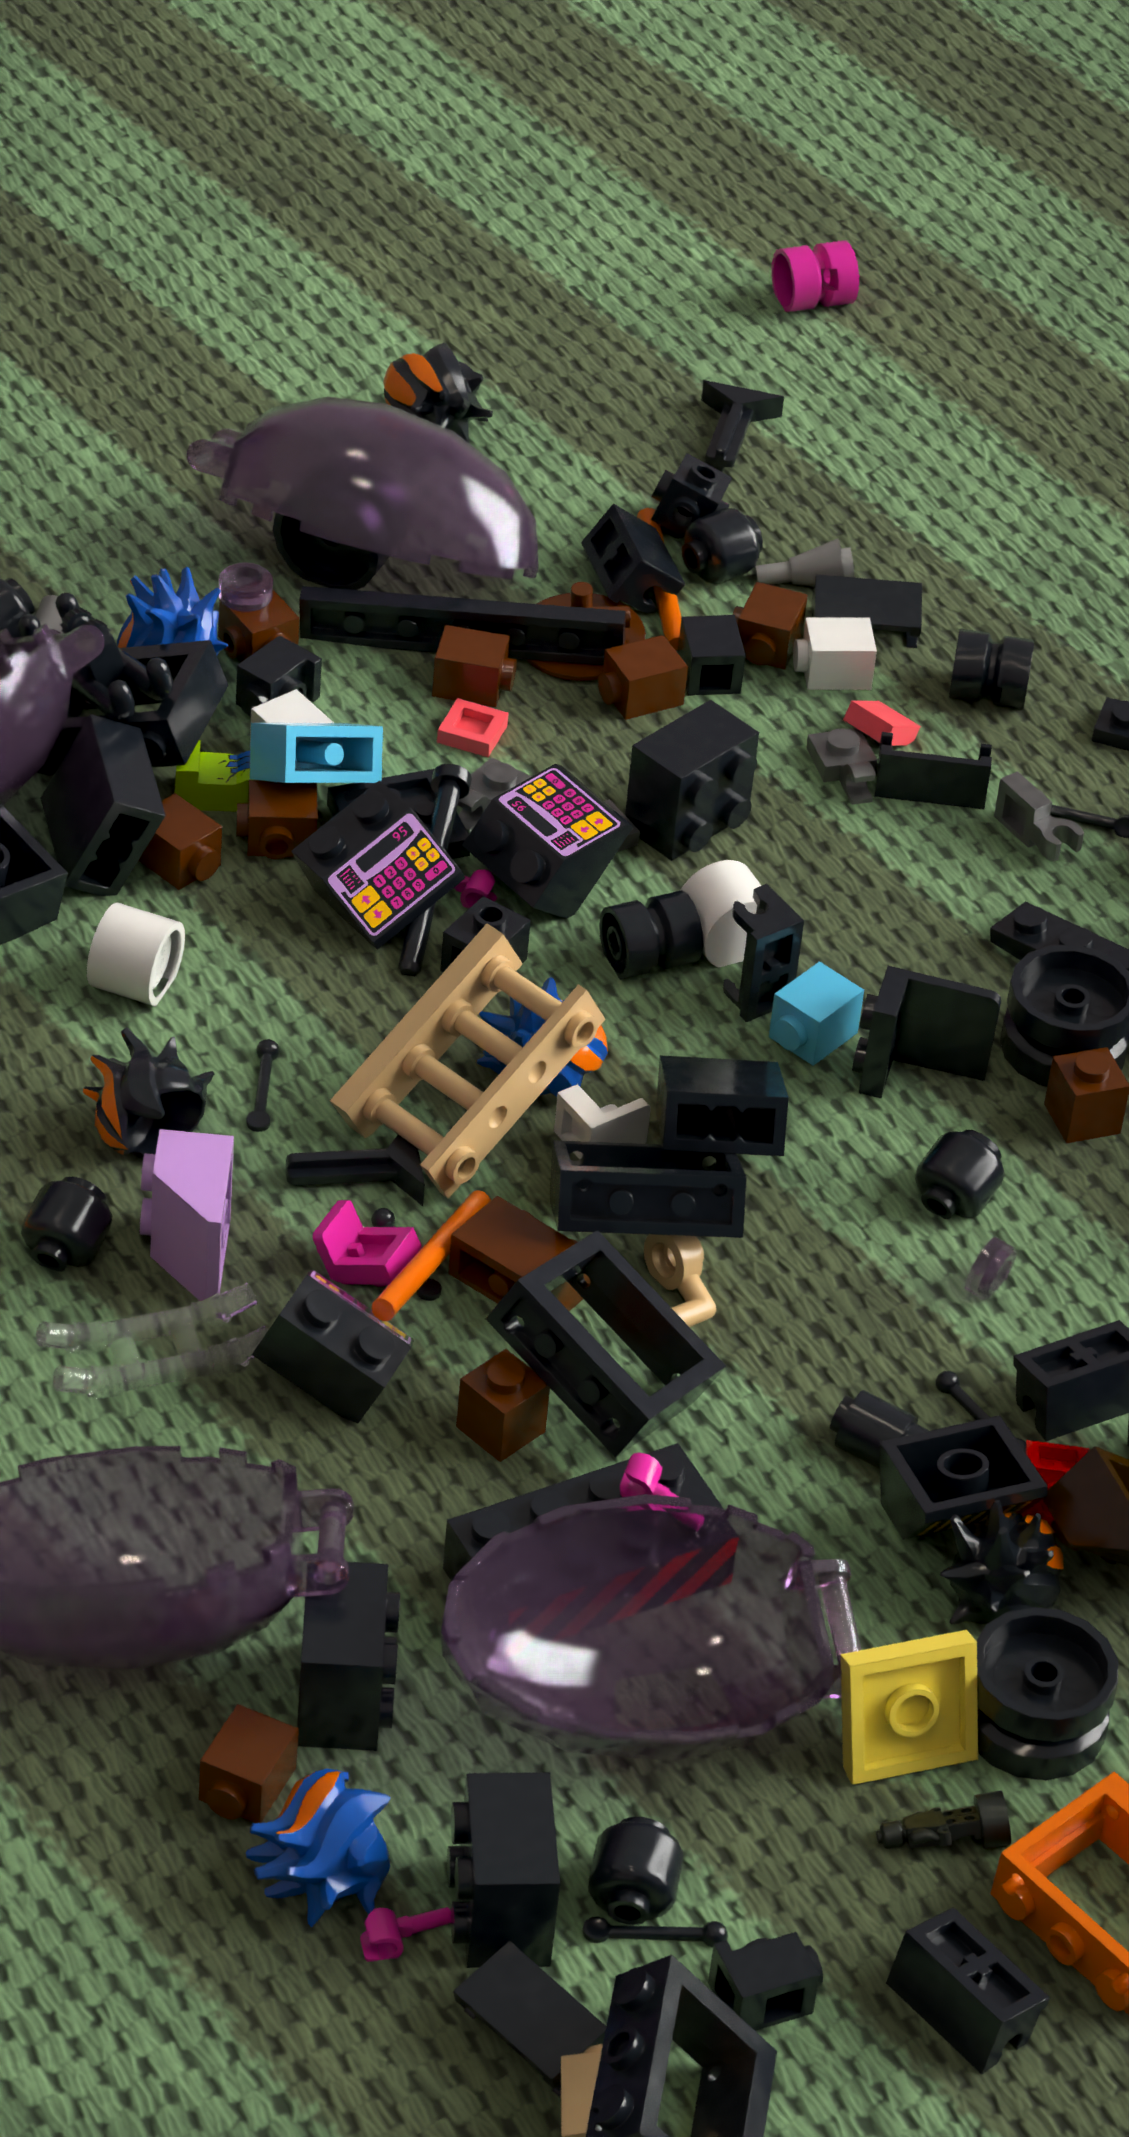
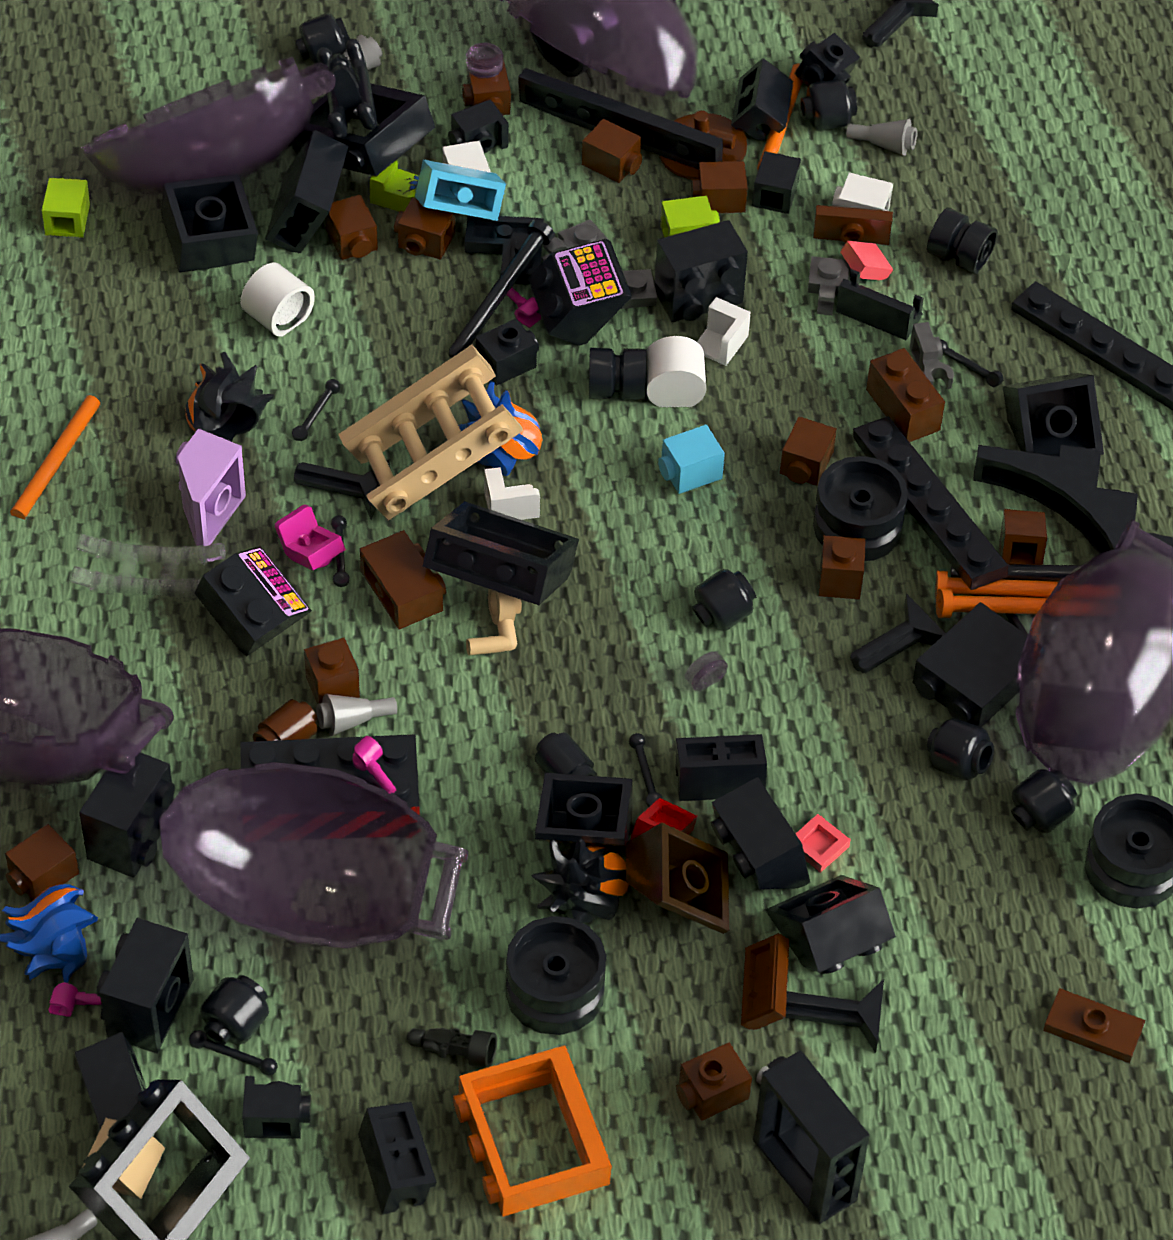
camera: 25 degrees right, 10 degrees up
(67, 1223) = (135, 471): black head -> none
(169, 616) = (424, 73): blue hair -> none
(377, 864) = (460, 278): black slope -> none
(426, 1260) = (336, 562): orange bar -> none
(472, 727) = (592, 194): coral tile -> none
(480, 1481) = (288, 722): none -> reddish brown brick
(544, 1453) = (344, 712): none -> light grey cone
(580, 1367) = (375, 665): black window -> none
(619, 724) = (686, 215): none -> lime brick
(721, 1106) = (584, 508): black brick -> none
(756, 841) = (725, 331): none -> white panel
(769, 953) = (674, 405): black hinge -> none
(771, 624) = (827, 169): reddish brown brick -> none
(838, 682) = (852, 224): none -> reddish brown plate
(886, 602) = (906, 172): black hinge -> none
(909, 1706) = (461, 958): light yellow plate -> none
(927, 1026) = (751, 483): black bracket -> none
(955, 954) = (807, 451): none -> reddish brown brick
(1036, 865) = (905, 394): none -> reddish brown brick

